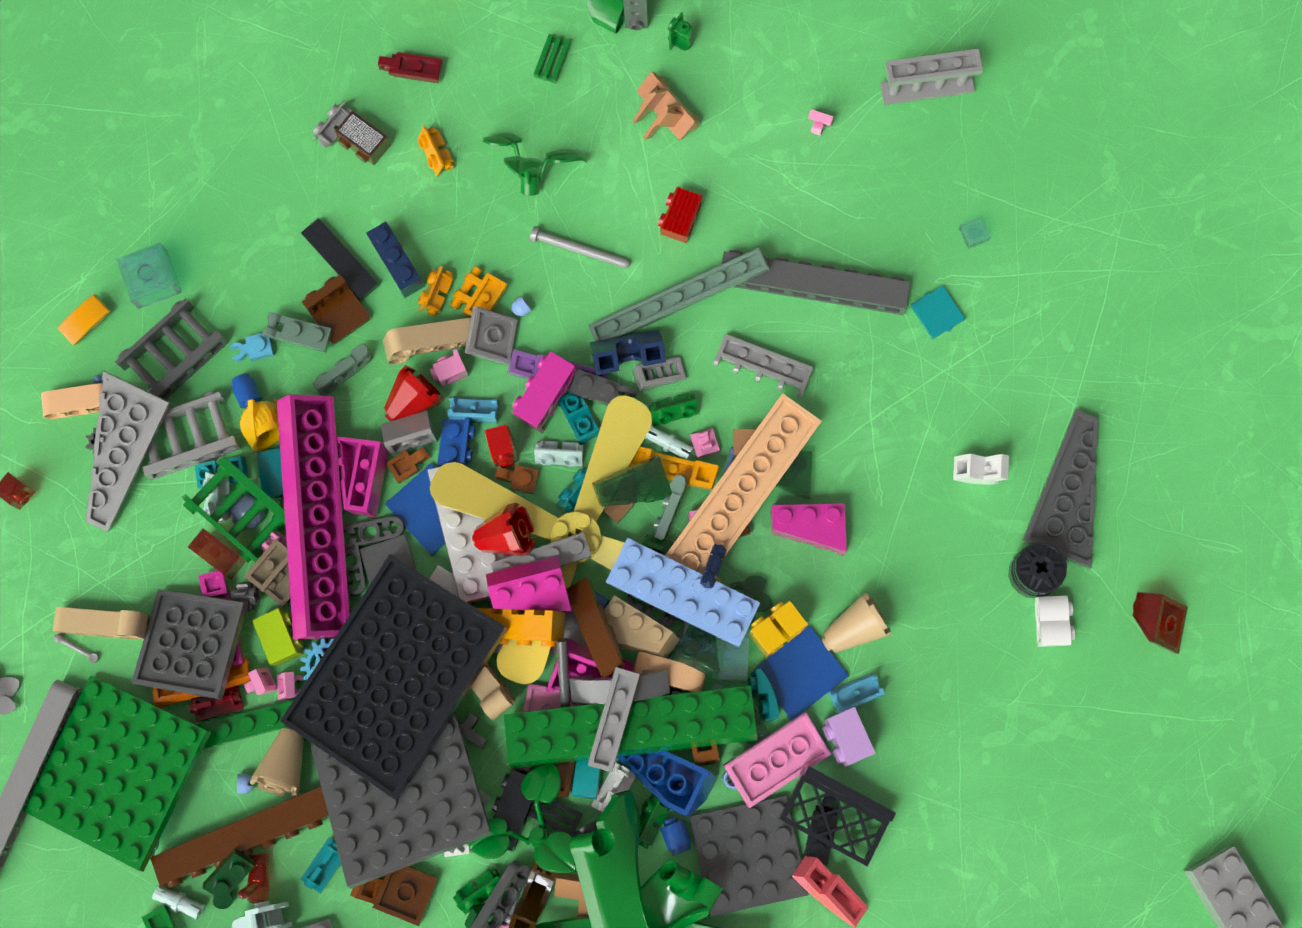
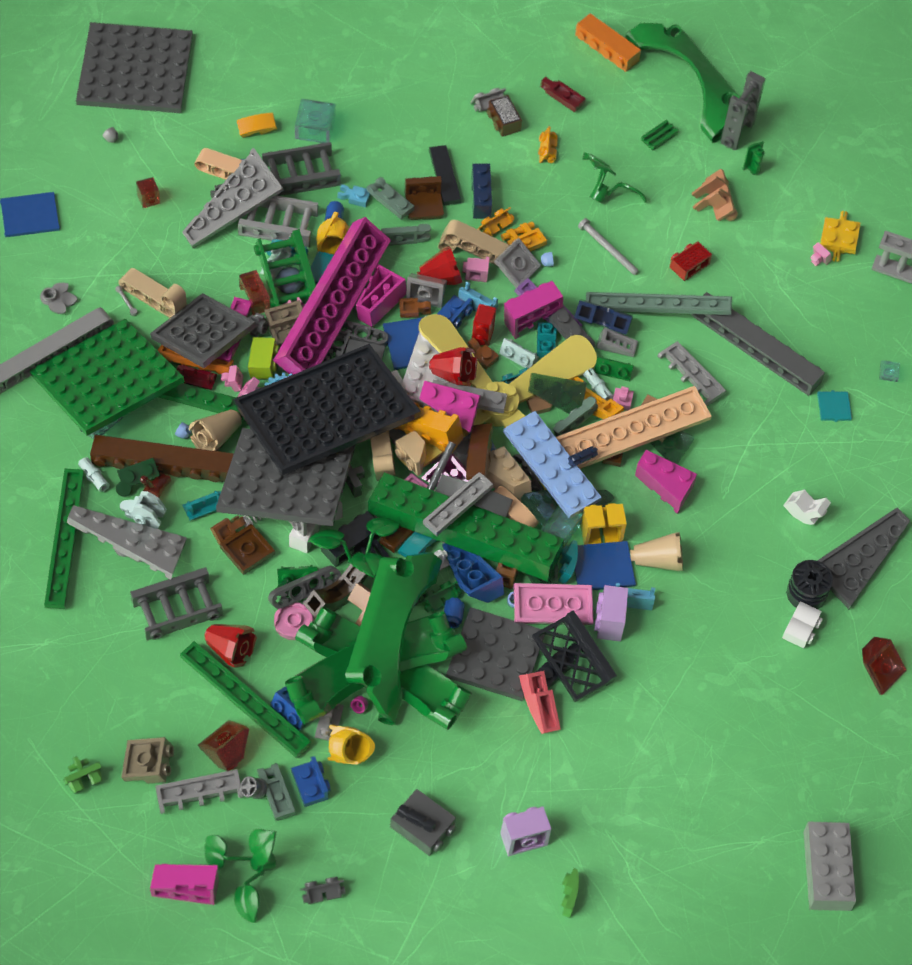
camera: 20 degrees right, 20 degrees down
(520, 668) = (412, 451): none -> tan slope
(826, 79) = (840, 235): none -> yellow plate

